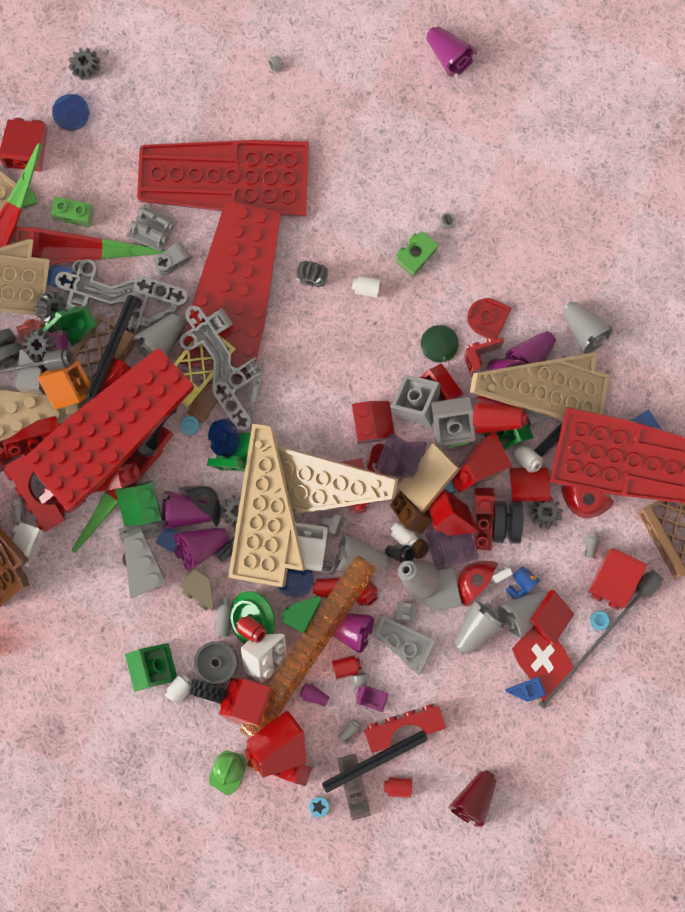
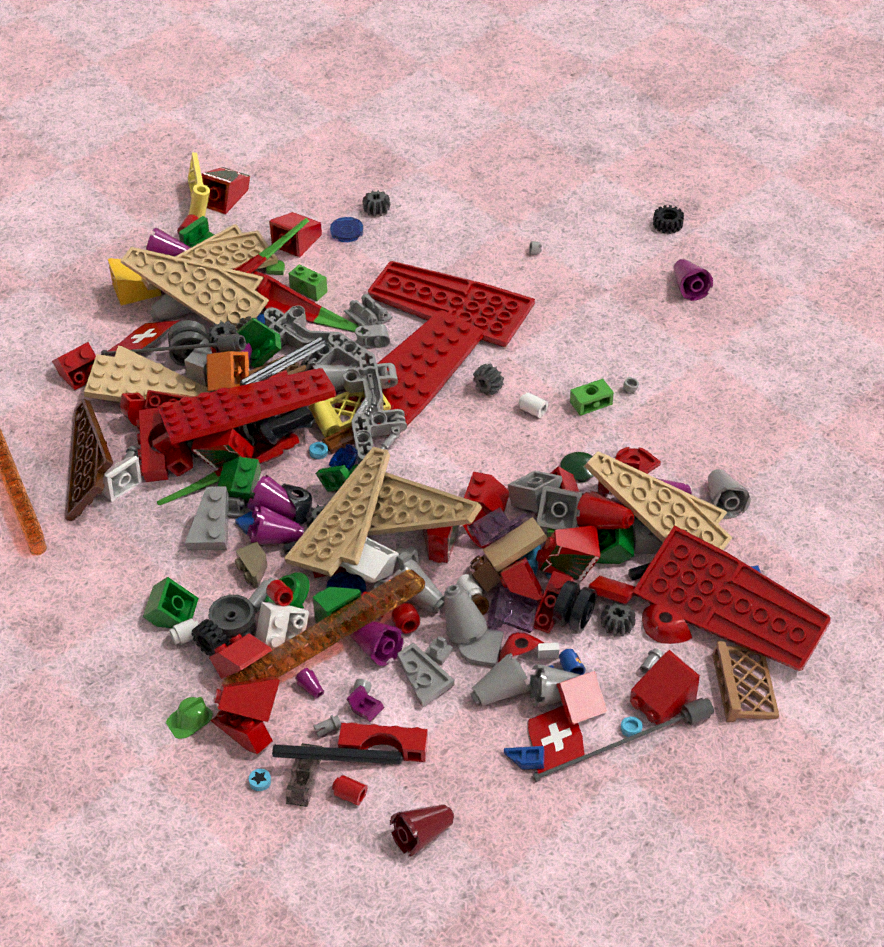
camera: 25 degrees right, 35 degrees down
(346, 666) = (353, 670): red brick -> none
(528, 459) = (621, 570): white brick -> none

